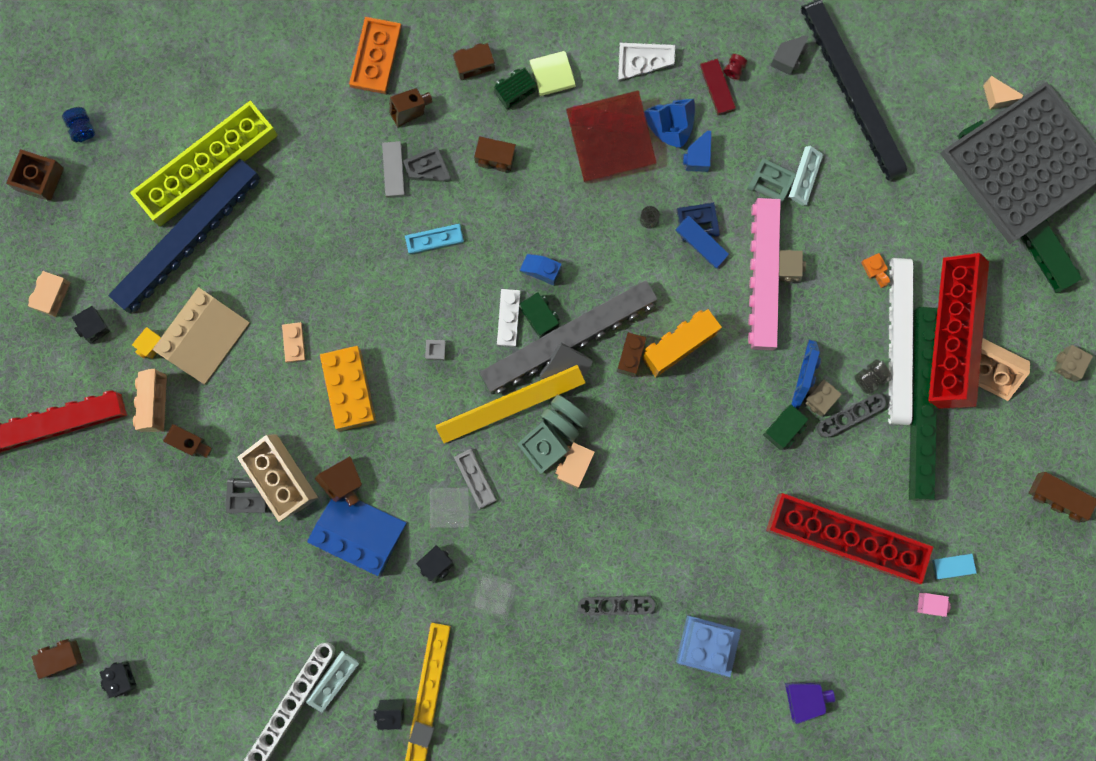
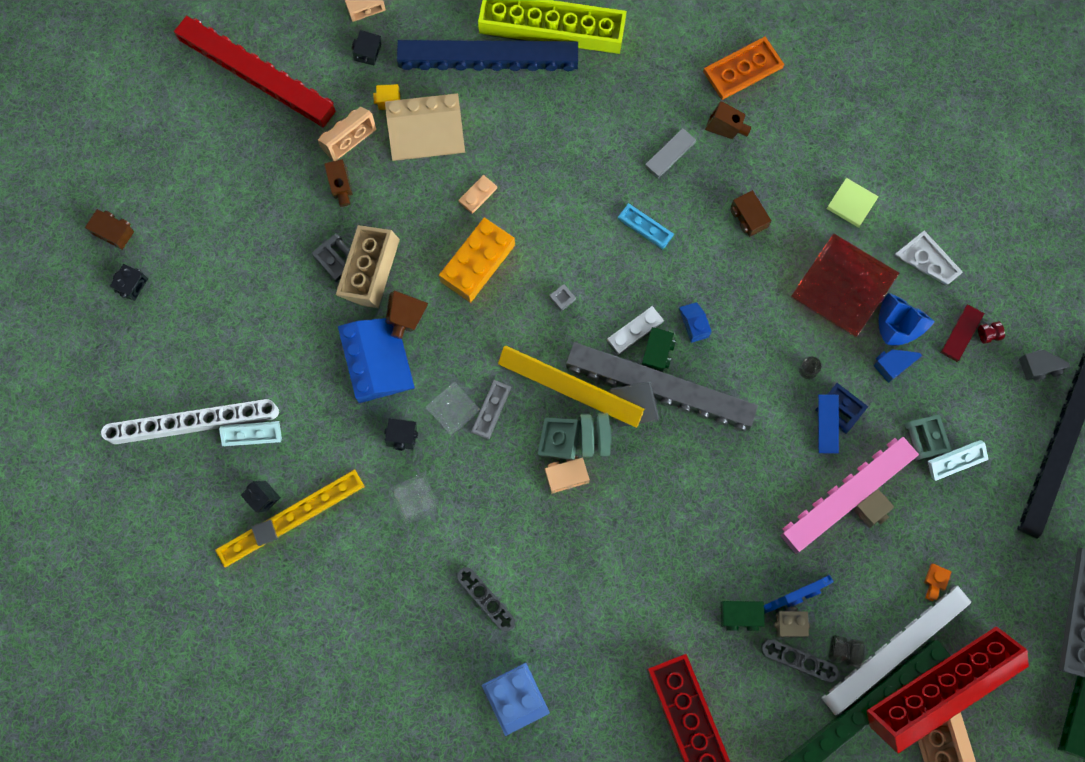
camera: 50 degrees right, 5 degrees down
(427, 166) = (695, 174): dark grey wing -> none
(474, 61) = (806, 139): reddish brown brick -> none
(515, 88) = (814, 185): dark green brick -> none
(631, 354) = (690, 444): reddish brown brick -> none
(681, 343) = (734, 474): light orange brick -> none

